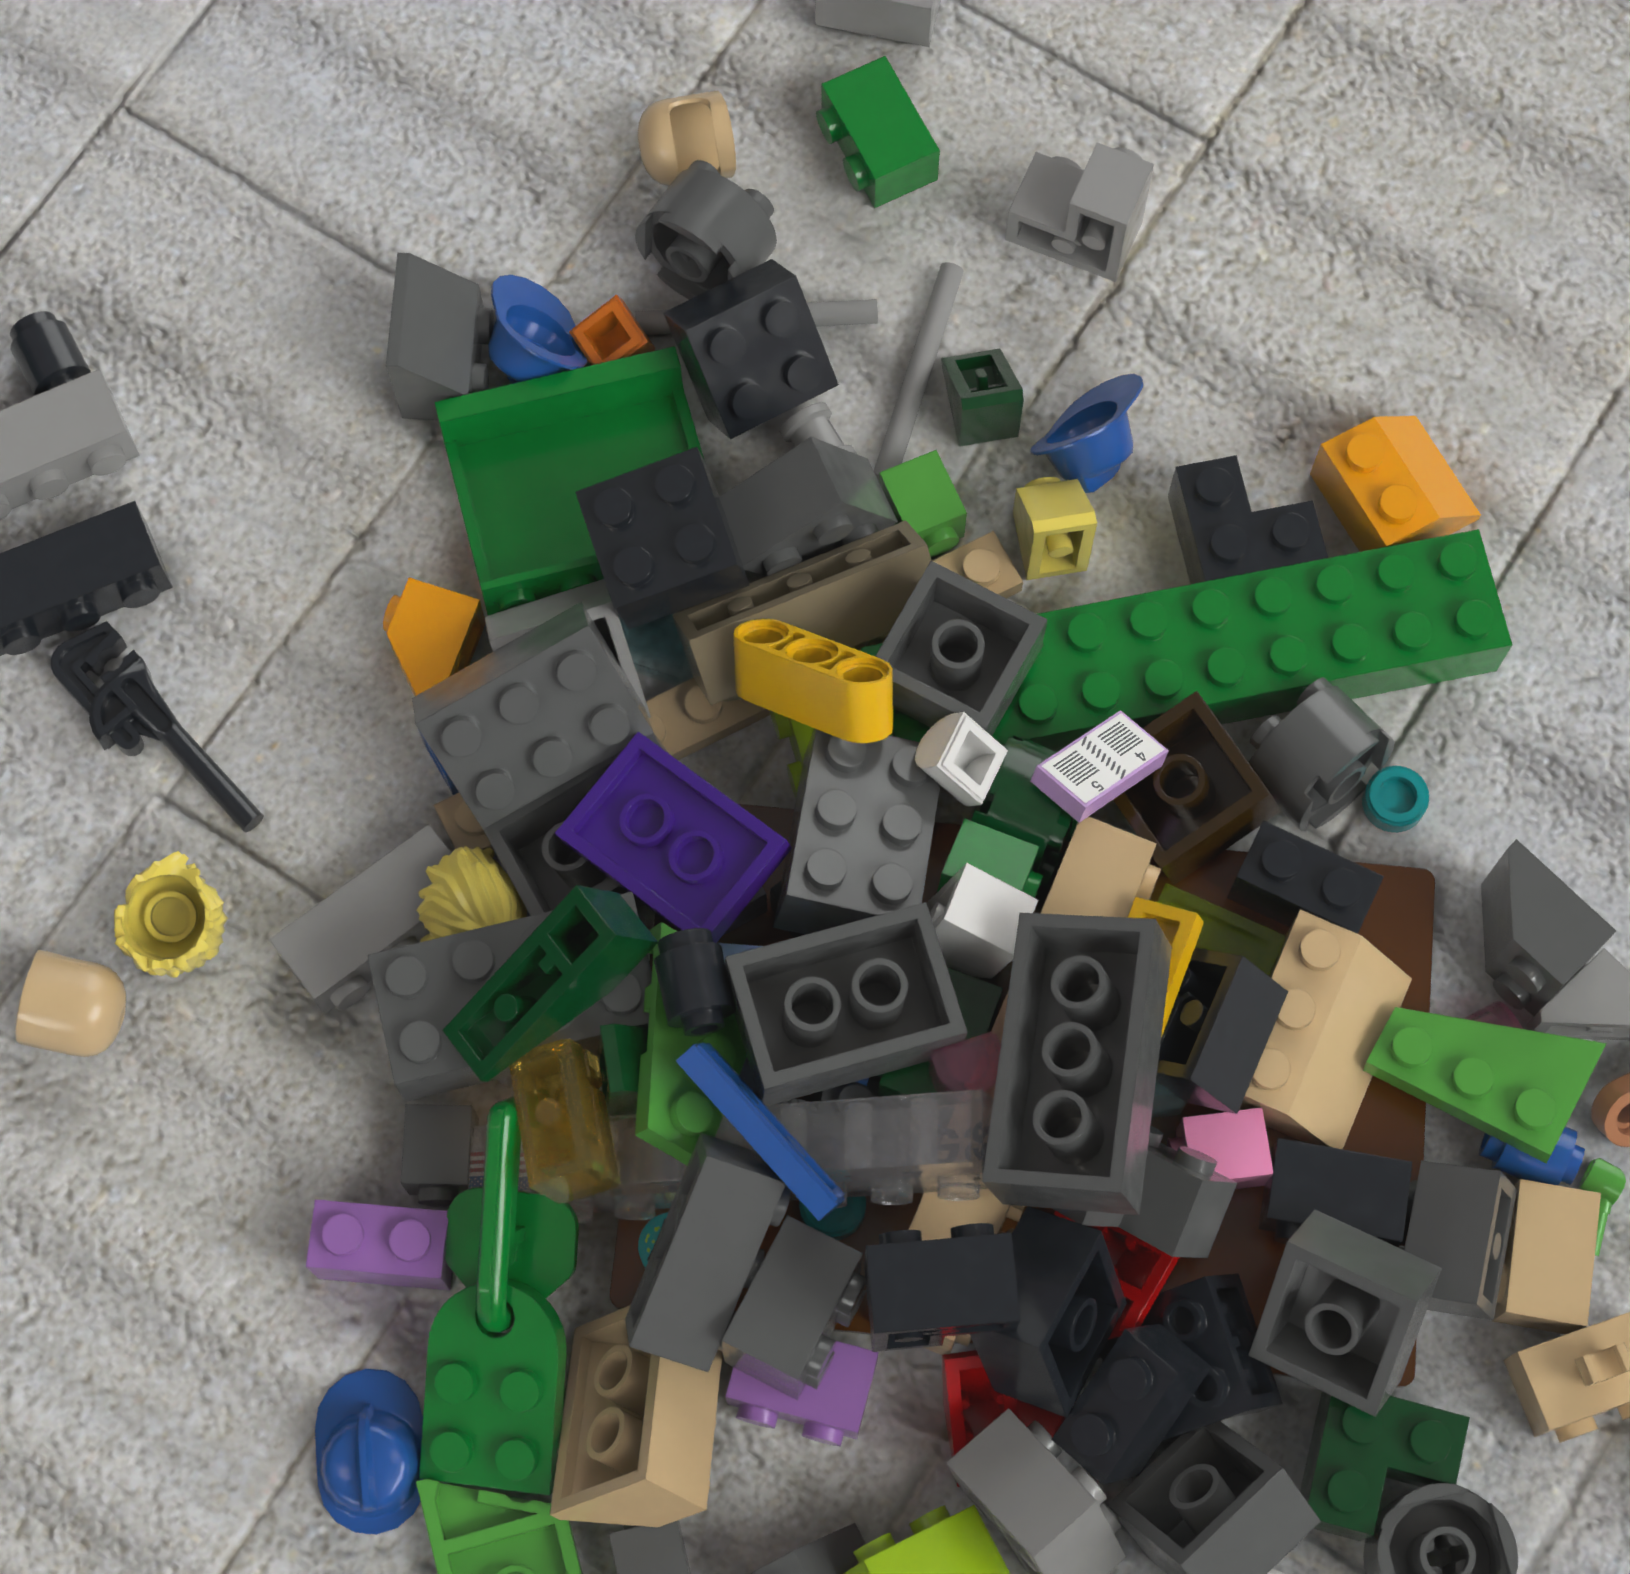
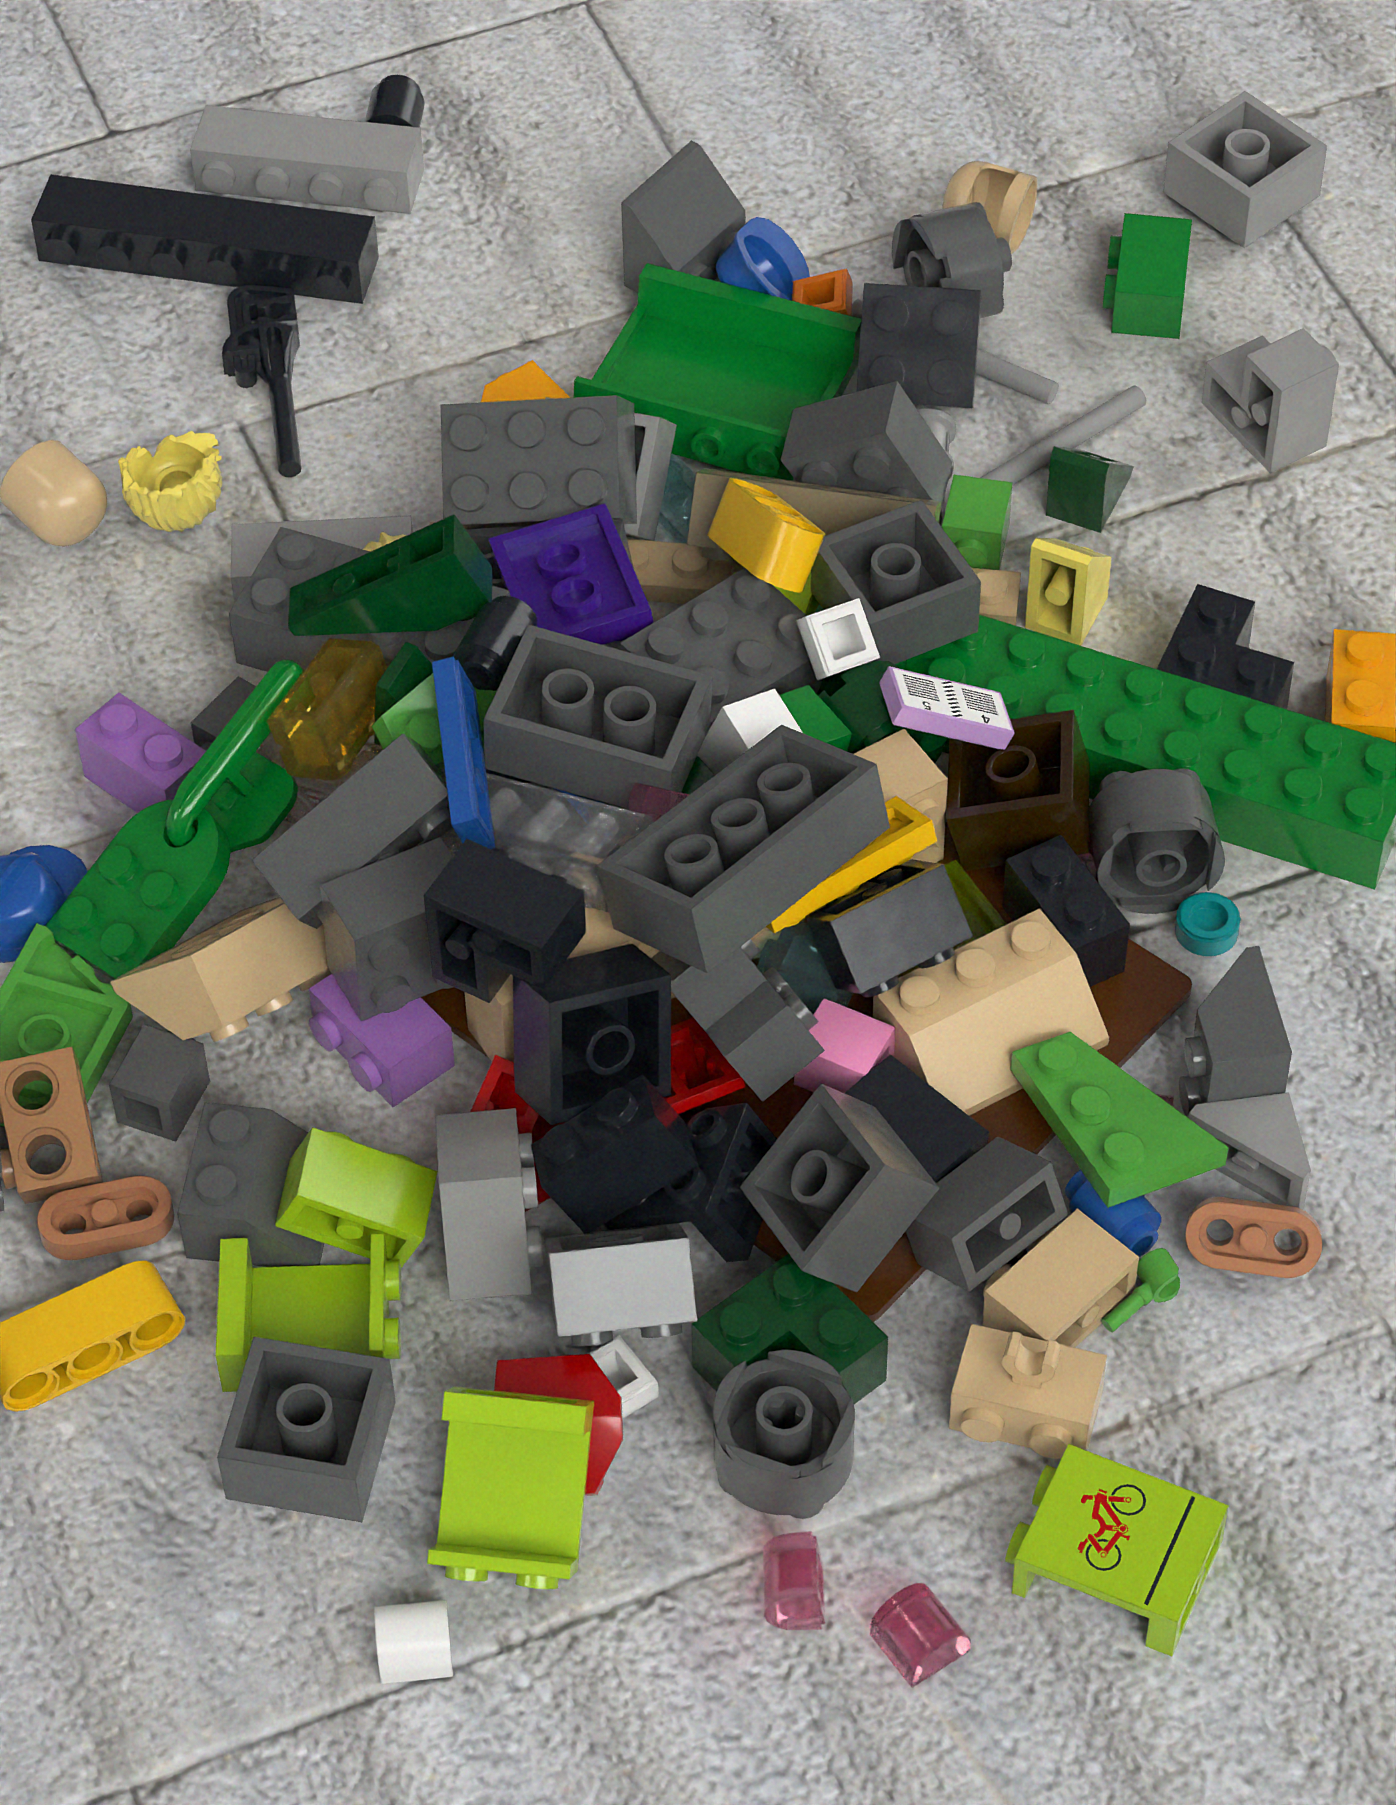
camera: 35 degrees right, 20 degrees down
(662, 538) = (731, 399): black brick -> none
(1093, 433) = (1148, 550): blue piece -> none

